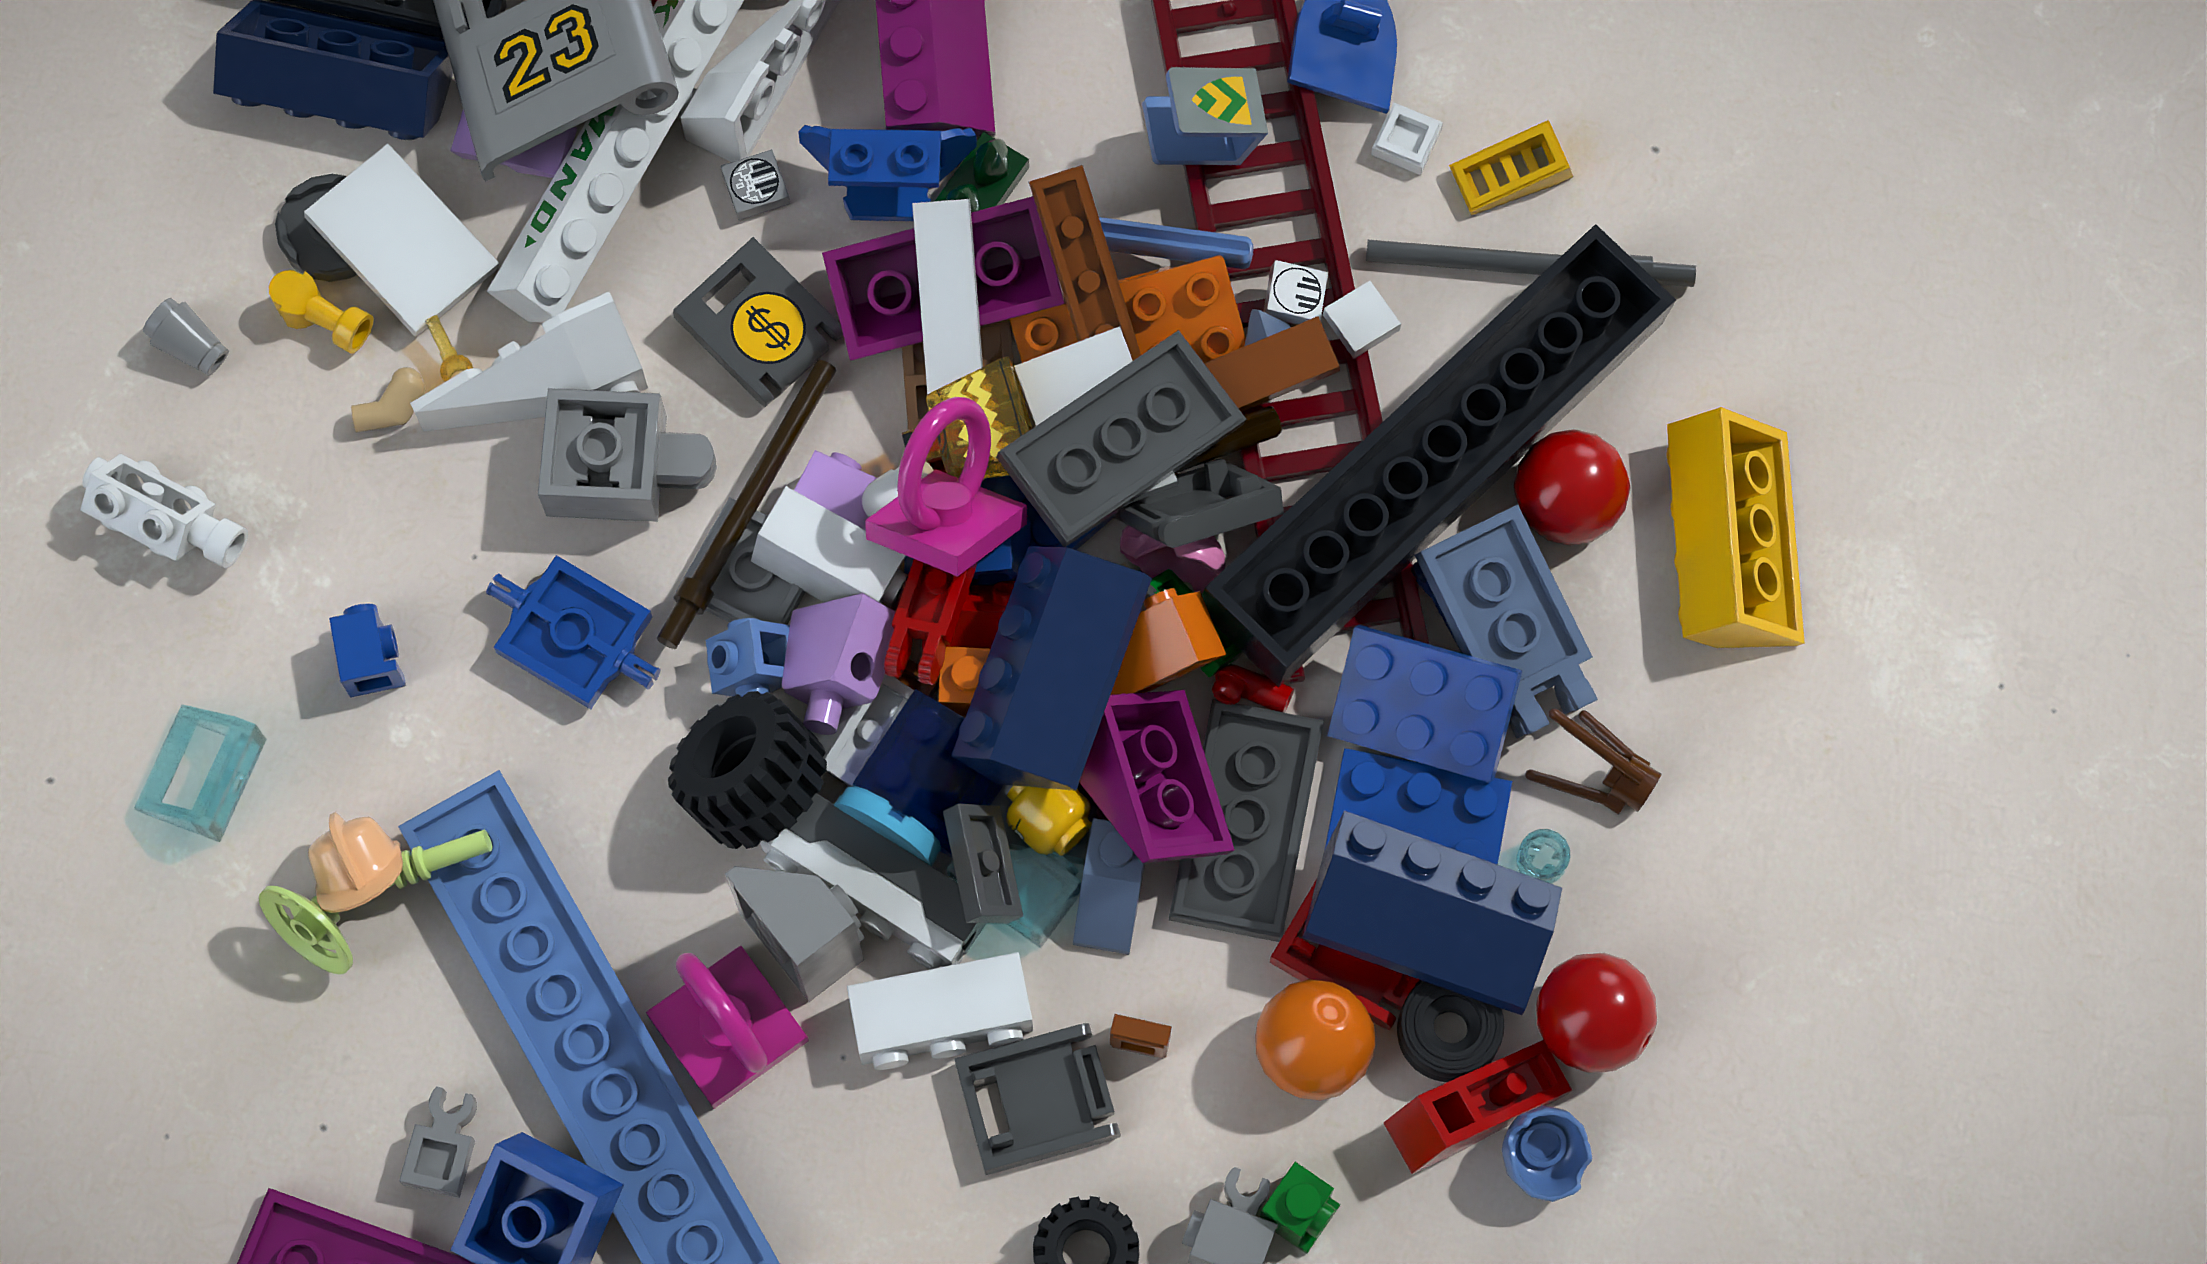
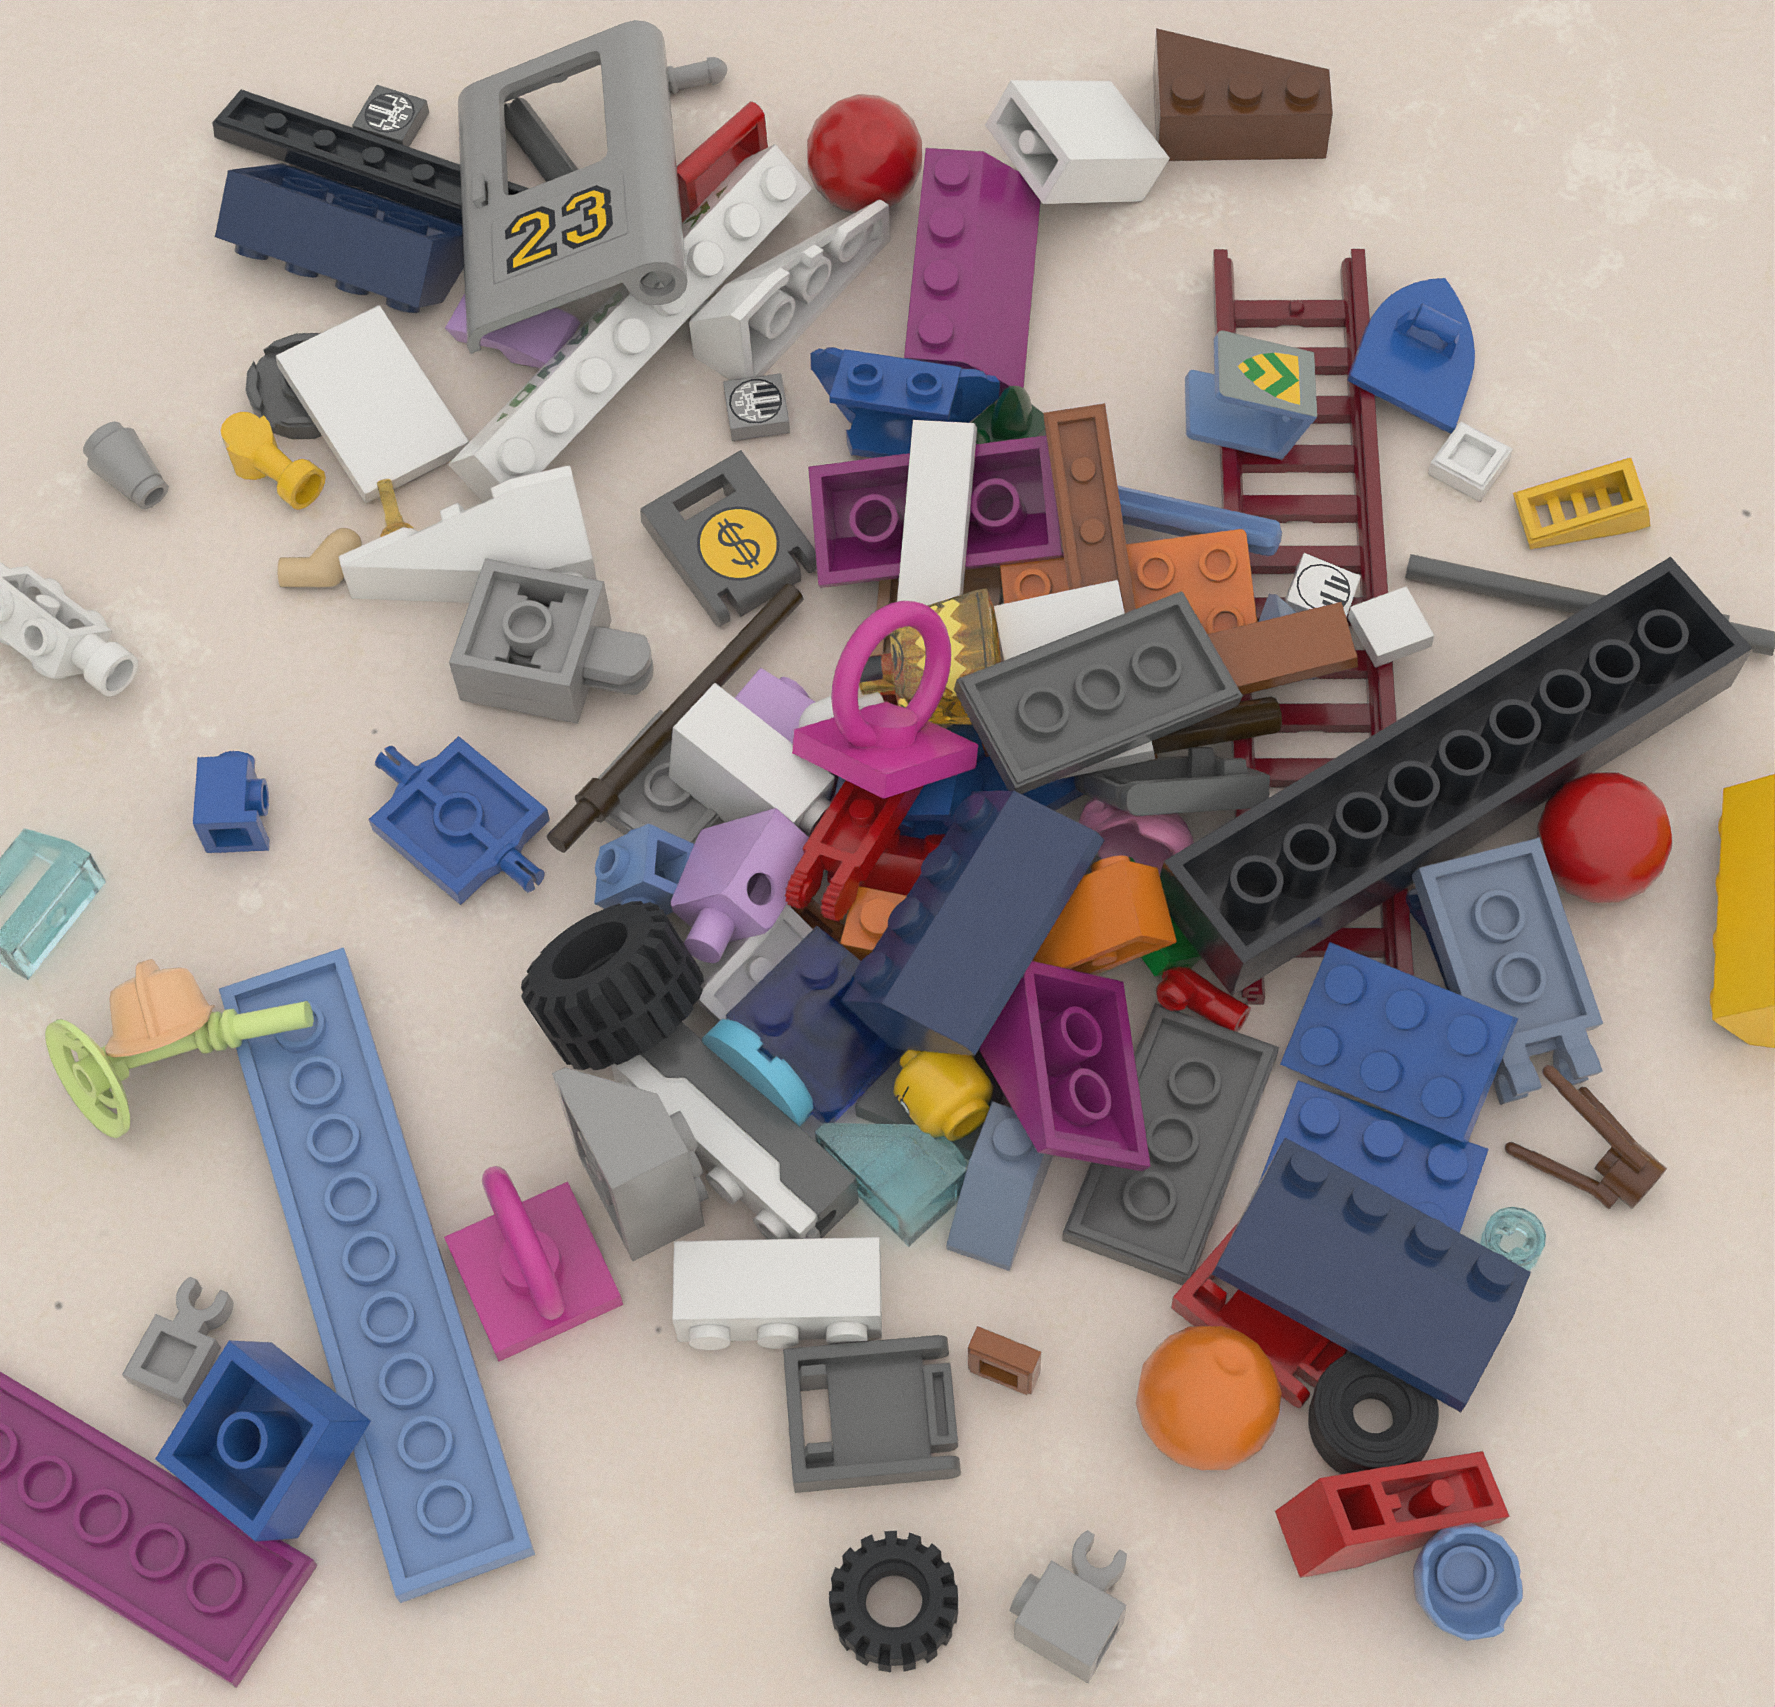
camera: 15 degrees right, 10 degrees down
(983, 863) = (855, 1128): dark grey plate -> none
(1300, 1207) = (1159, 1593): green brick -> none
(1596, 1012) = (1552, 1424): red piece -> none

